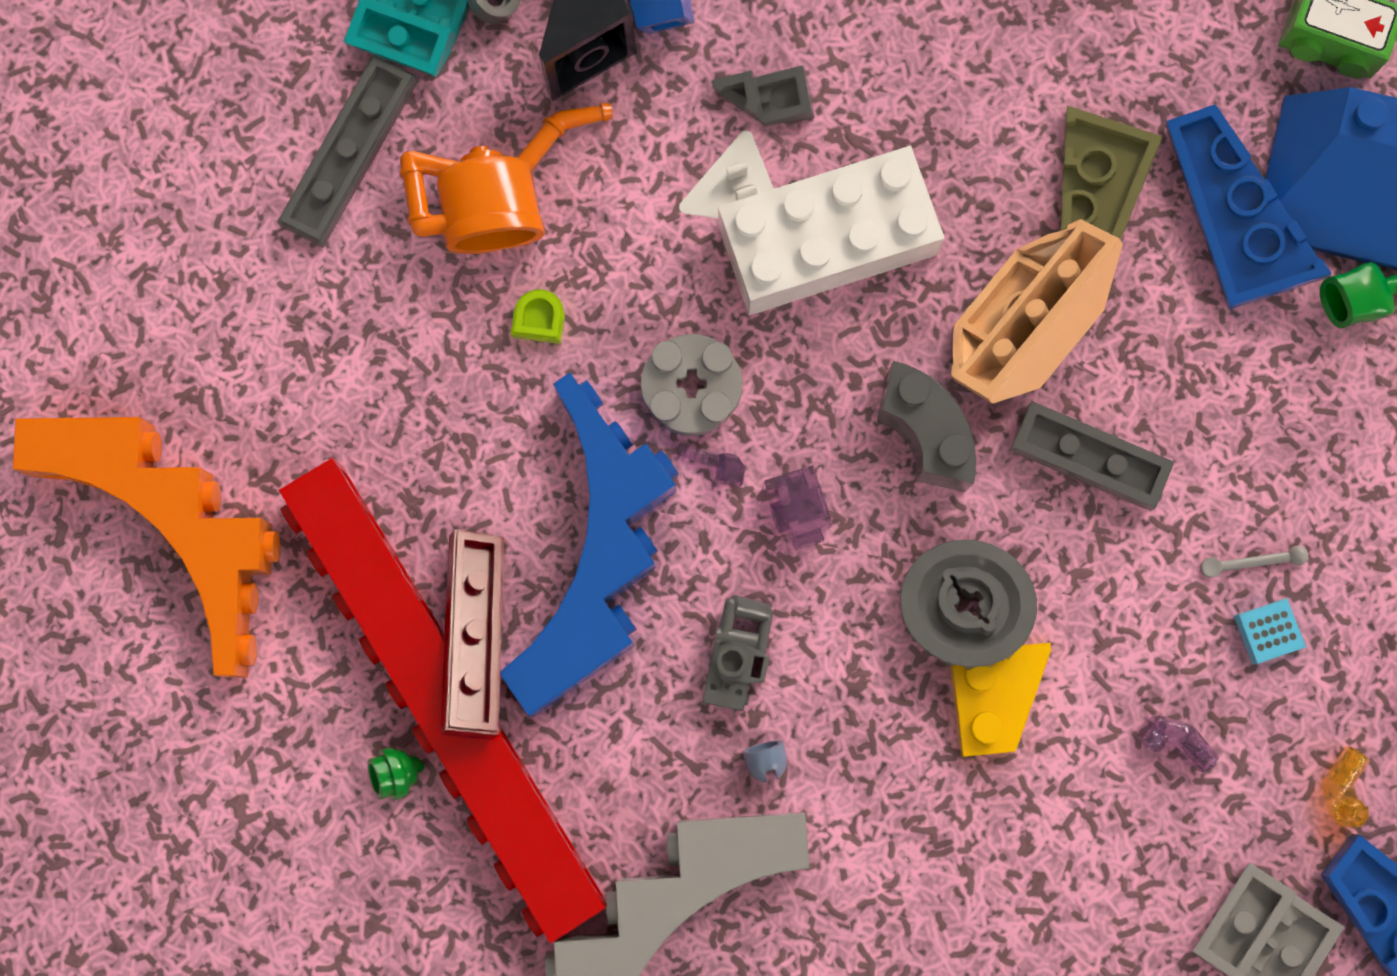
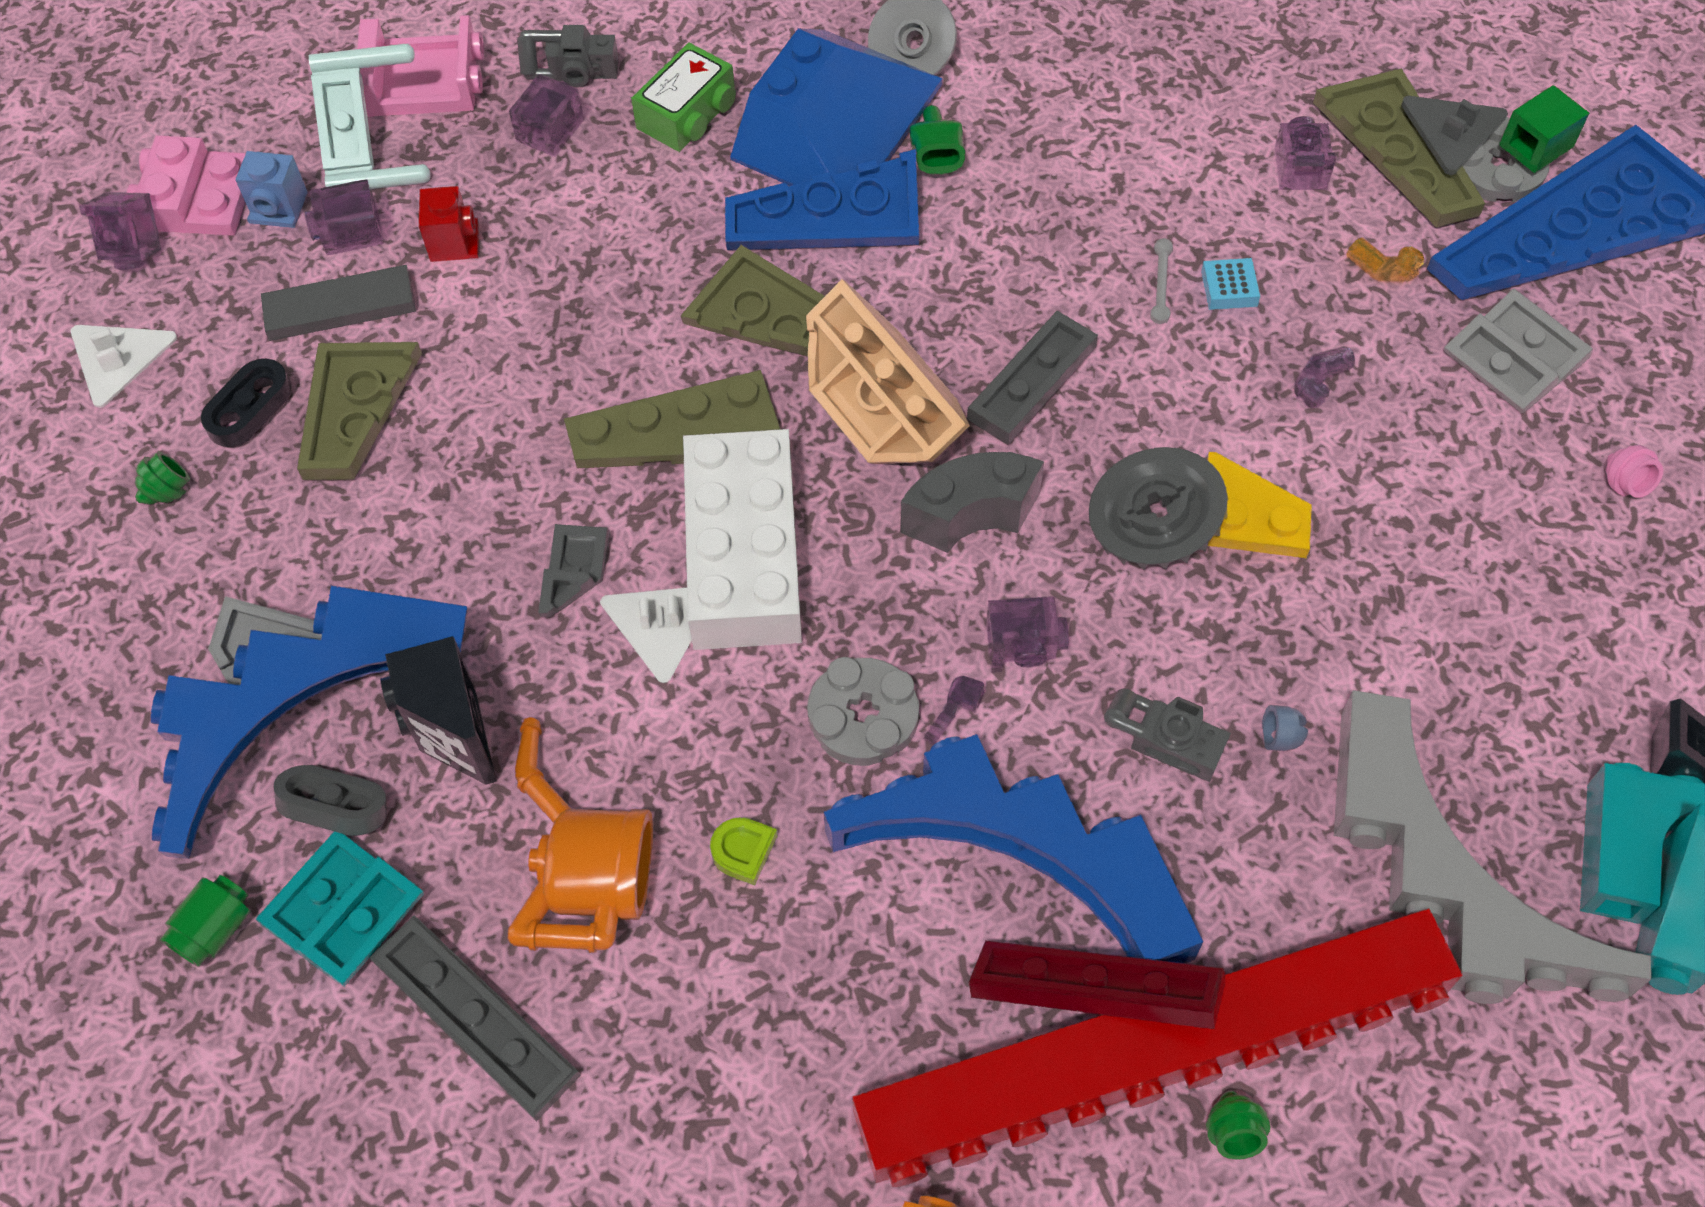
camera: 75 degrees left, 20 degrees down
(953, 155) = (656, 425): none -> olive wing

